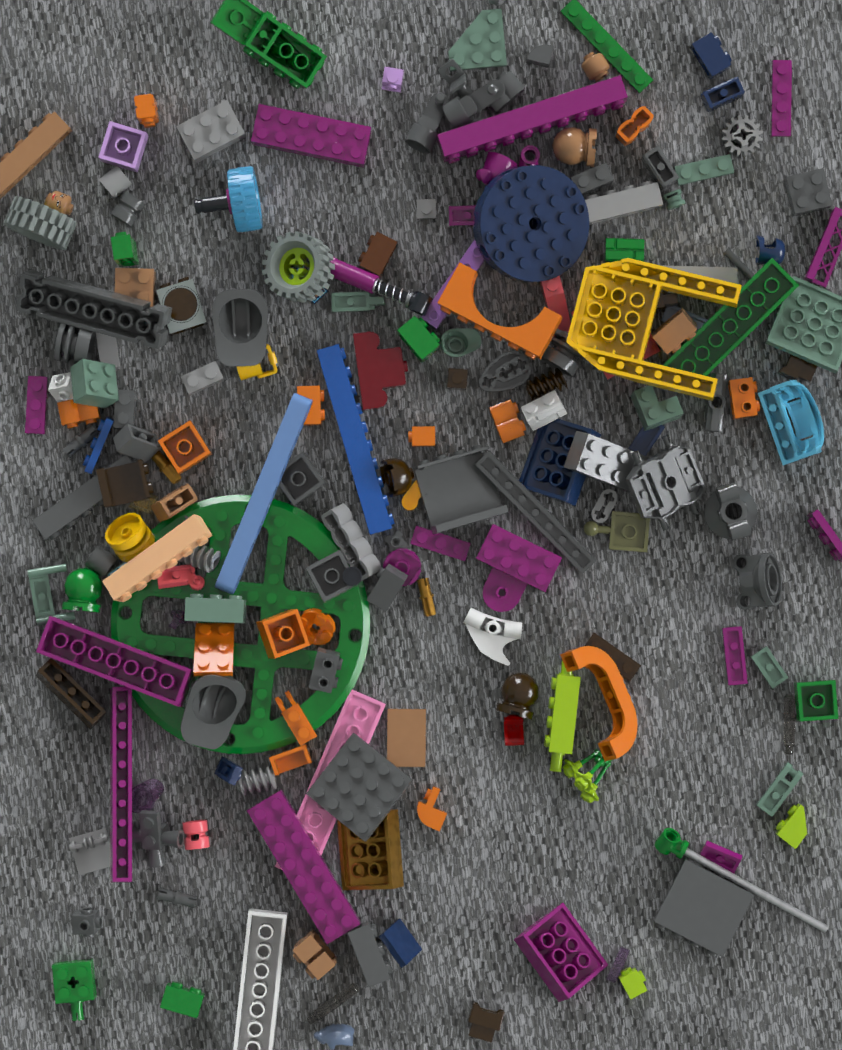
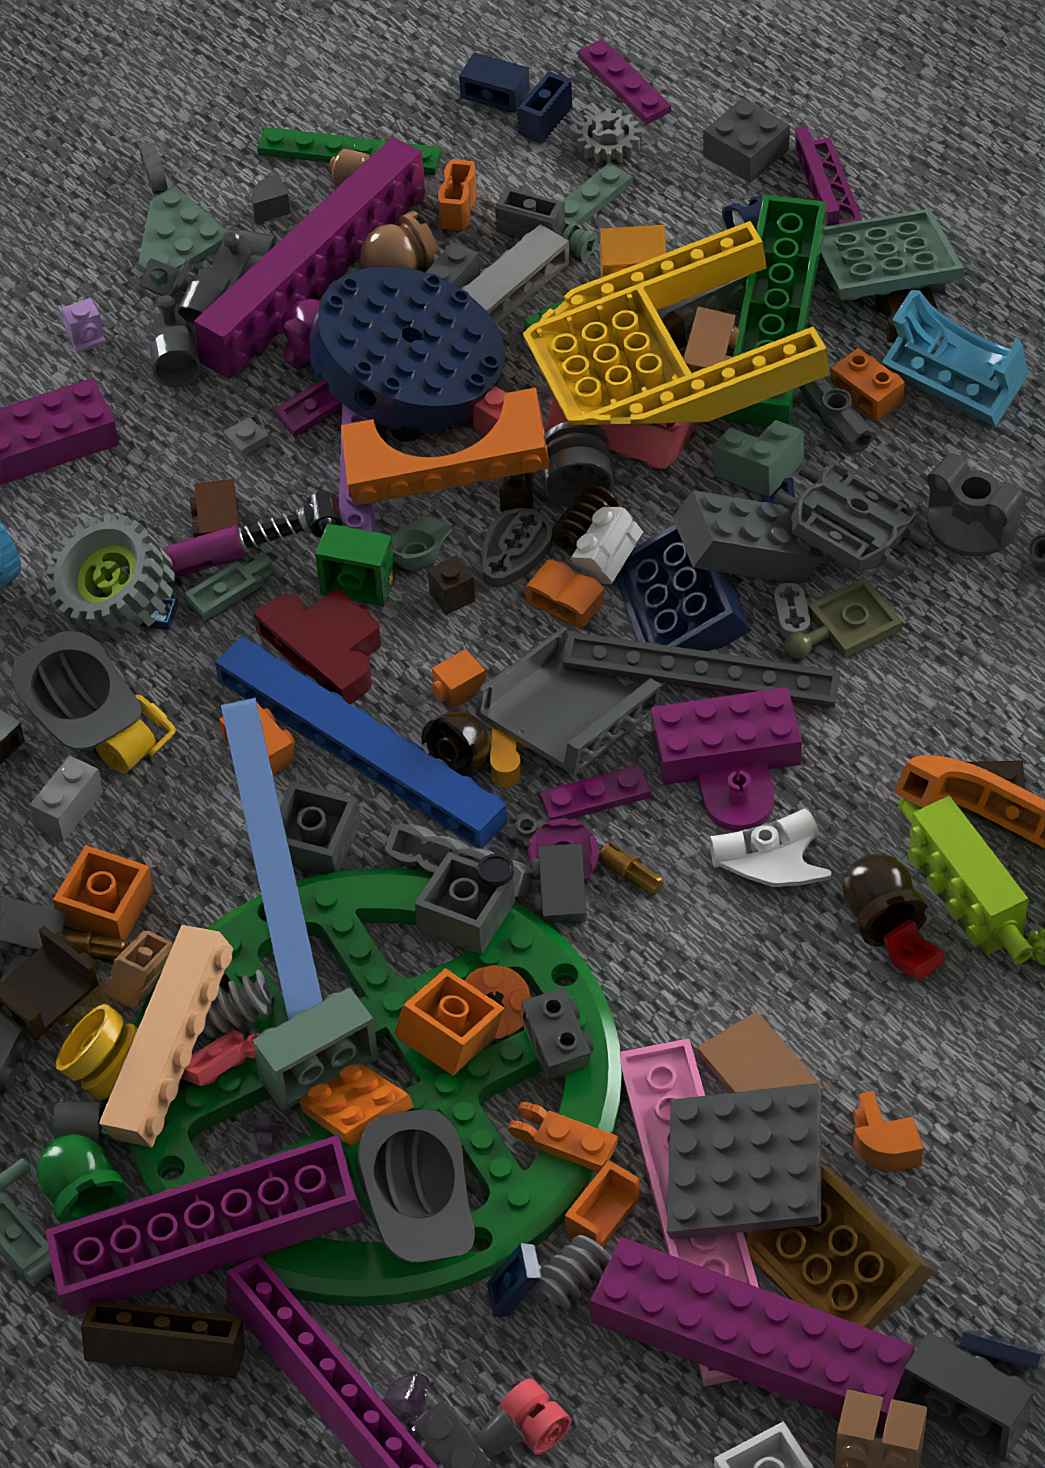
camera: 30 degrees left, 35 degrees down
(681, 246) = (629, 246): none -> light orange brick

